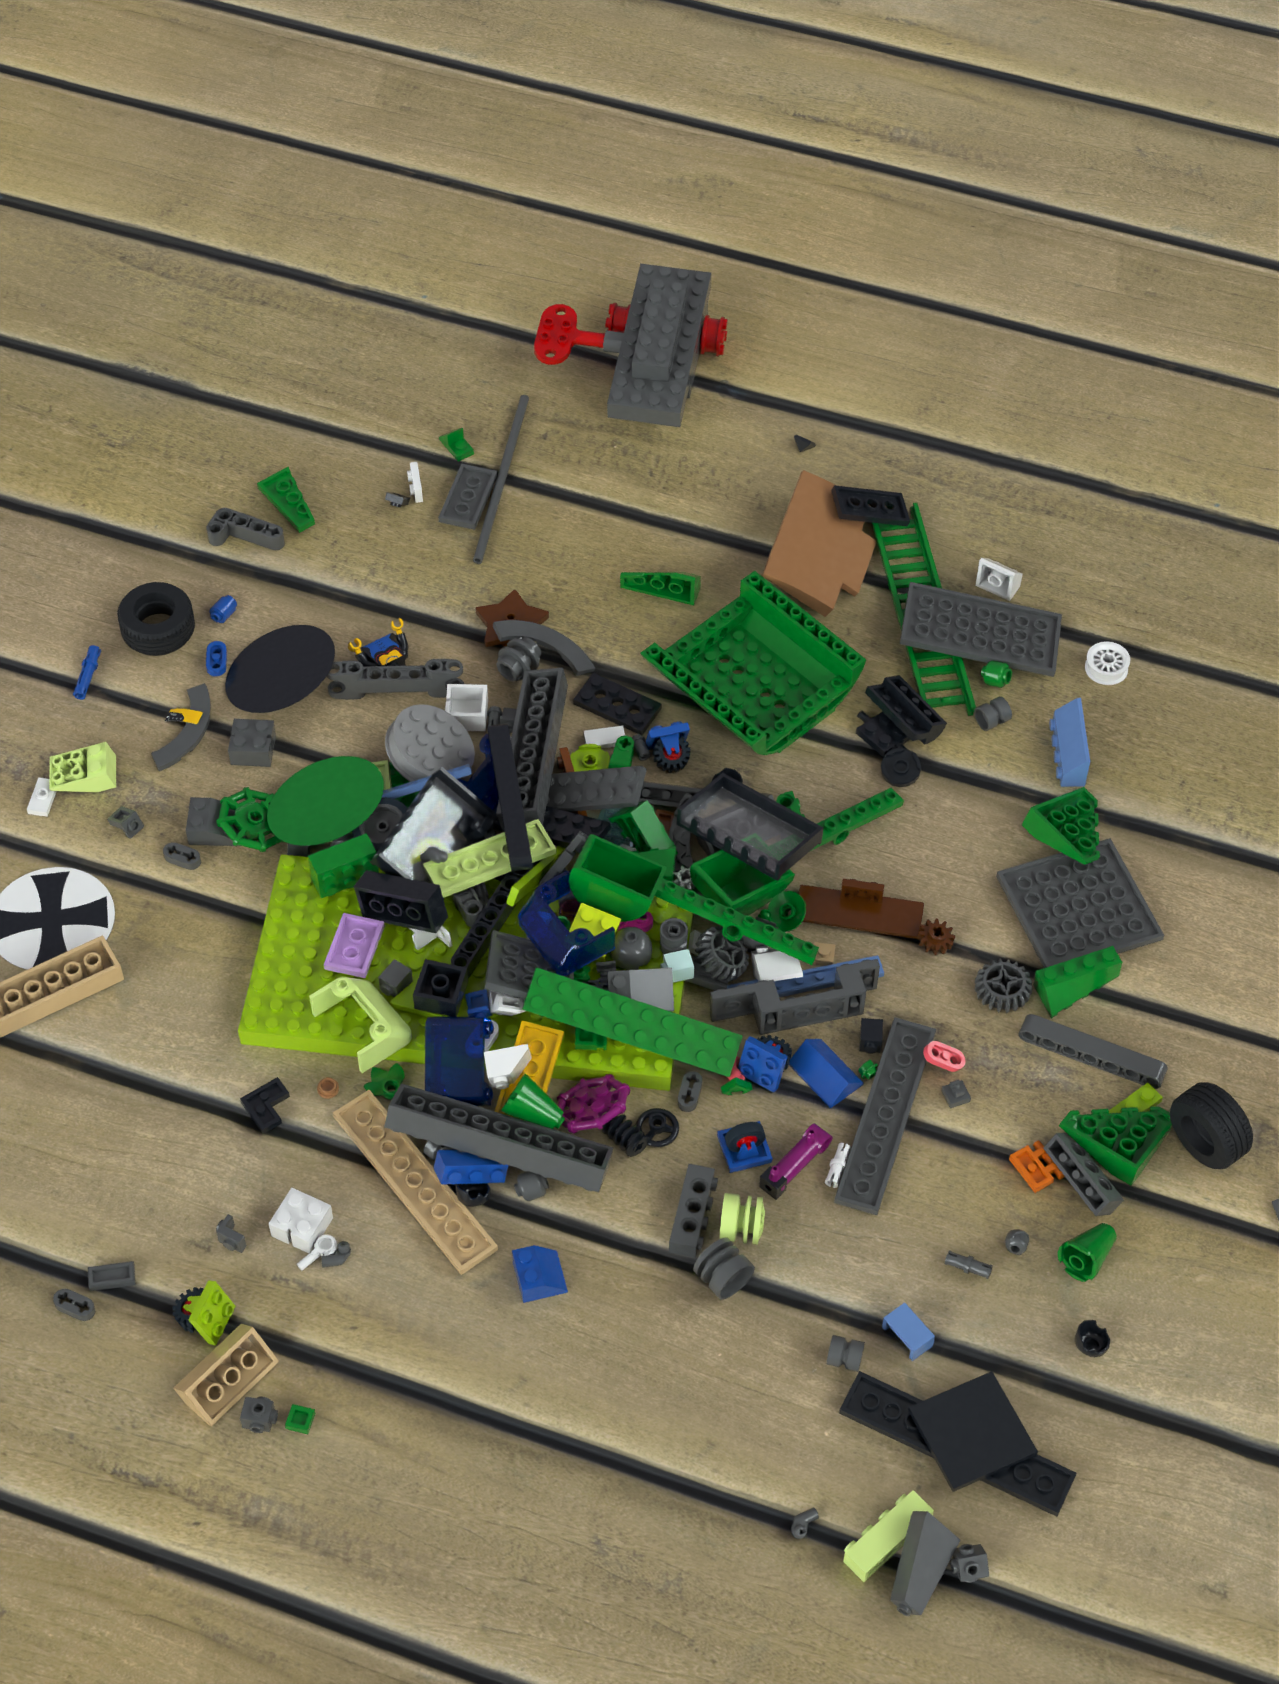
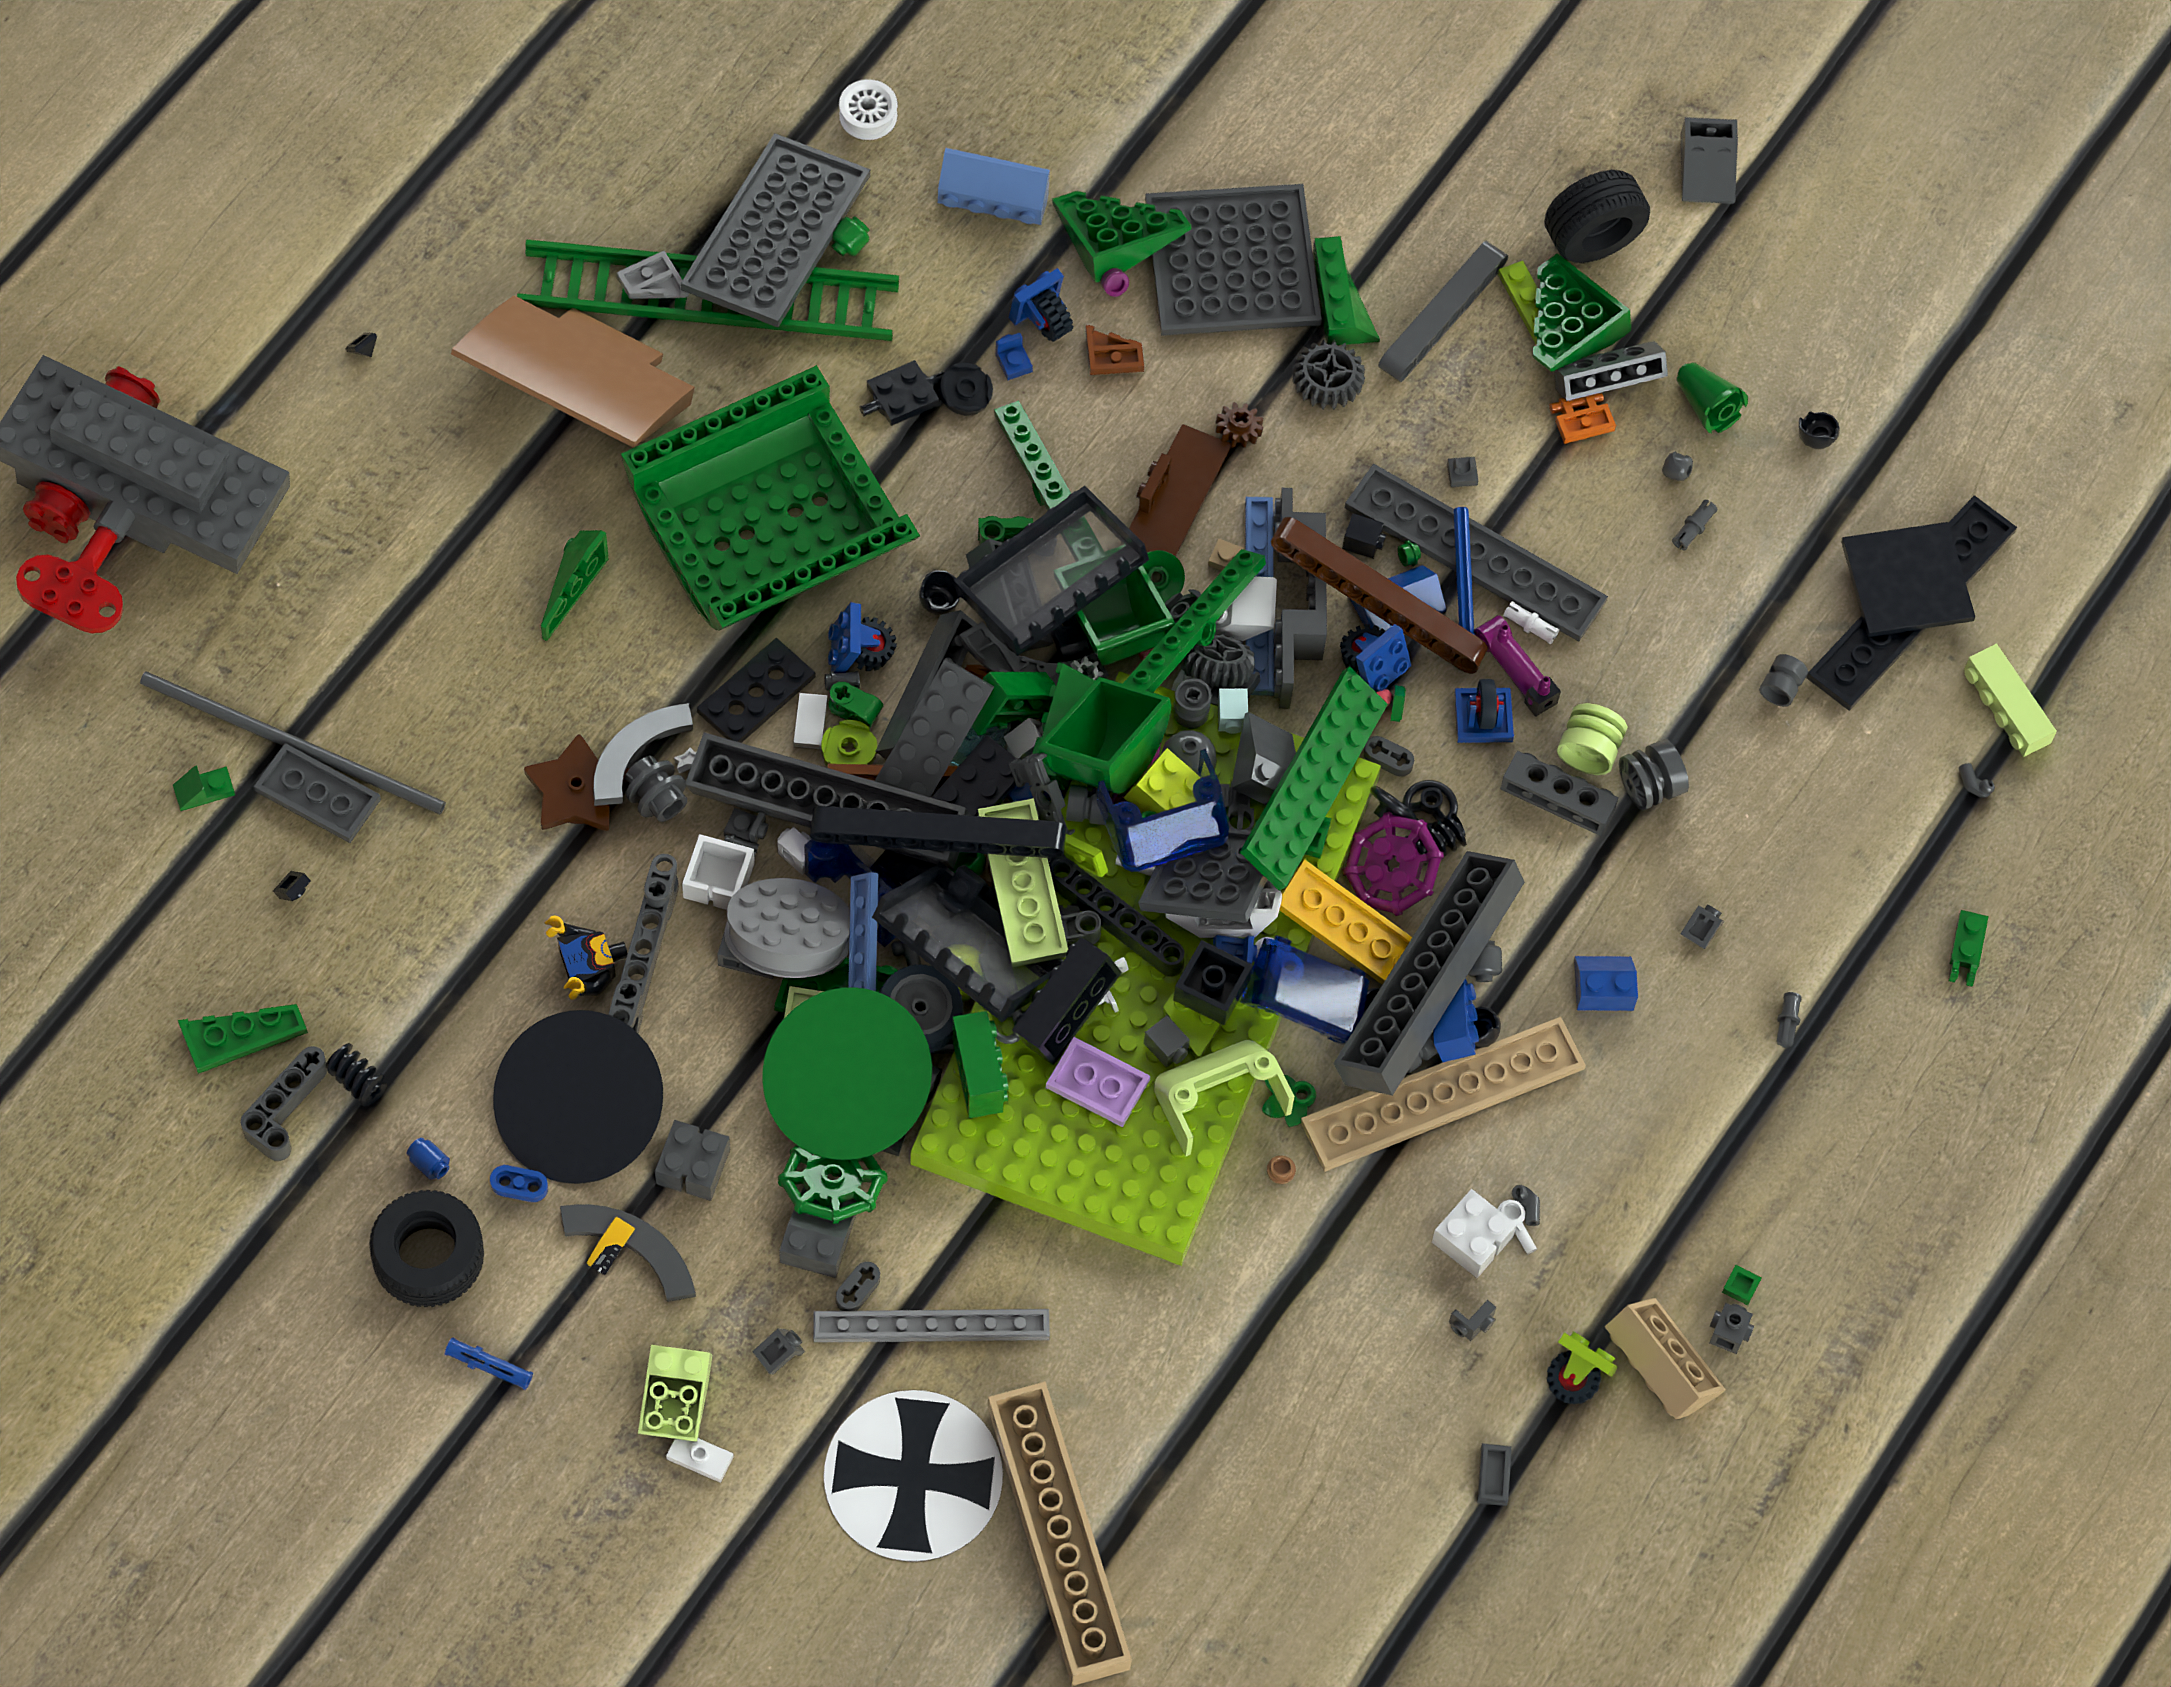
camera: 80 degrees left, 10 degrees up
(72, 1308) = (1521, 1520): dark grey beam -> none
(163, 905) = (931, 1325): none -> light grey tile
(260, 1104) = (1286, 1254): black plate -> none
(271, 559) = (355, 1076): none -> black piece
(414, 477) = (275, 855): white plate -> none
(434, 854) = (1004, 945): dark grey arm -> none
(506, 1065) = (1344, 932): white slope -> none
(533, 1105) = (1391, 925): green cone -> none
(541, 1413) = (1788, 1019): none -> dark grey axle
(607, 1334) = (1703, 925): none -> dark grey bracket
(639, 1094) = (1390, 804): none -> black piece
(647, 1543) = (1967, 945): none -> green hinge
(809, 1043) = (1379, 595): none -> reddish brown beam
(861, 1104) = (1463, 568): none -> blue axle
(877, 513) = (518, 281): black plate -> none
(907, 709) = (882, 352): black brick -> none
(909, 1330) = (1767, 607): medium blue panel -> none
(913, 570) = (652, 279): none -> light grey wing
(922, 1562) = (2056, 674): dark grey slope -> none
(939, 790) = (1013, 356): none -> blue bracket
(943, 1055) = (1415, 465): coral plate -> none
(966, 847) = (1112, 353): none -> dark orange wing
(970, 1563) = (2059, 628): dark grey brick -> none
(984, 791) = (1043, 306): none -> plate
(992, 714) = (914, 259): dark grey wheel -> none
(998, 578) = (692, 184): white slope -> none
(1026, 835) = (1115, 282): none -> magenta tile

